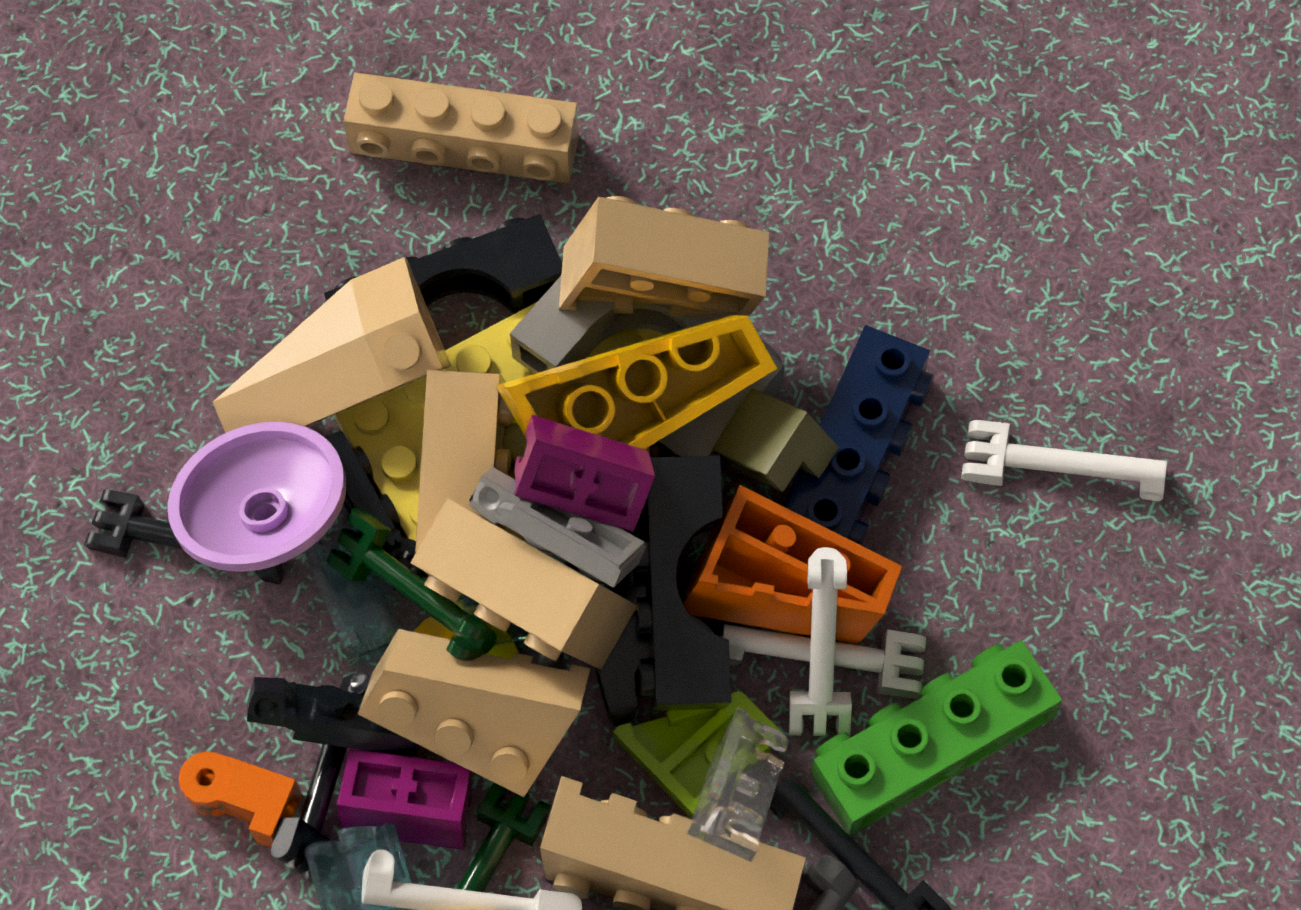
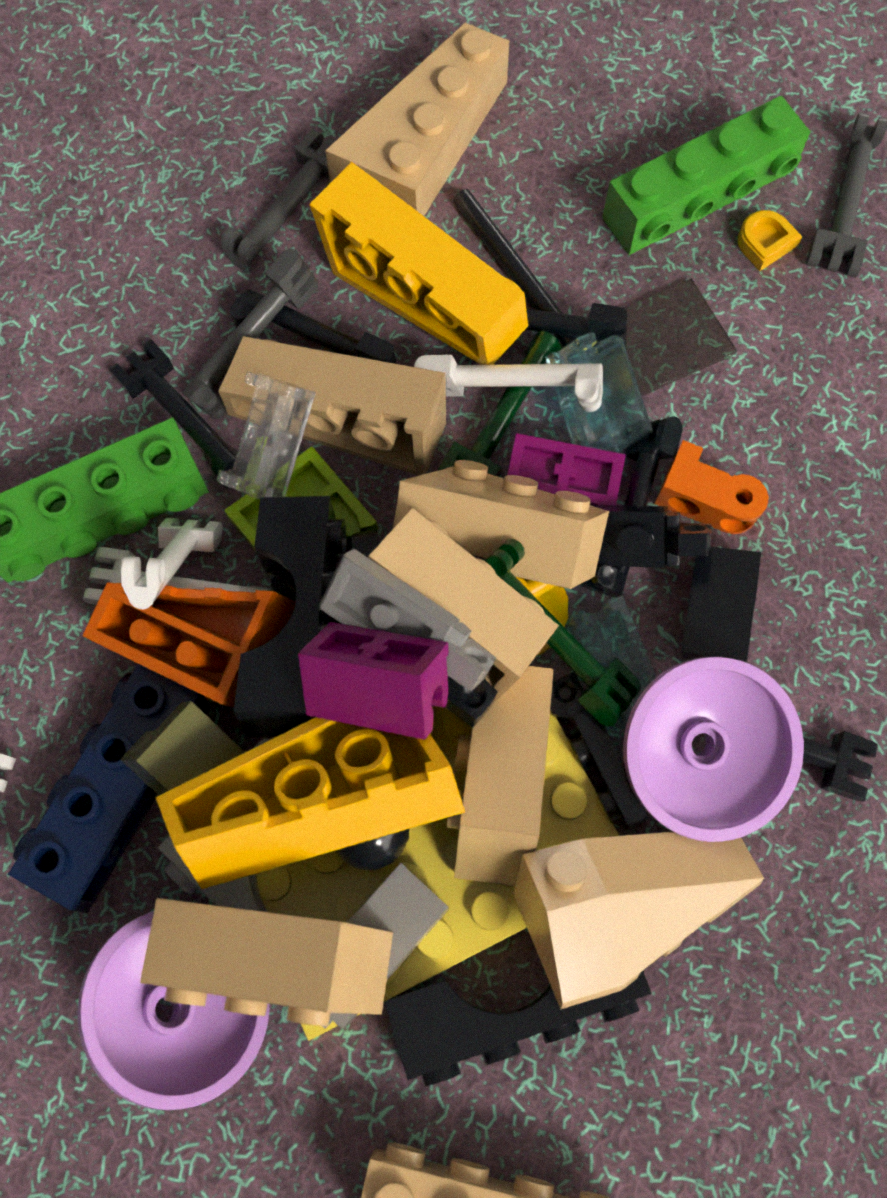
camera: 175 degrees left, 5 degrees up
(235, 652) = (721, 604): none -> black hinge
(798, 241) = (152, 1060): none -> lavender dish

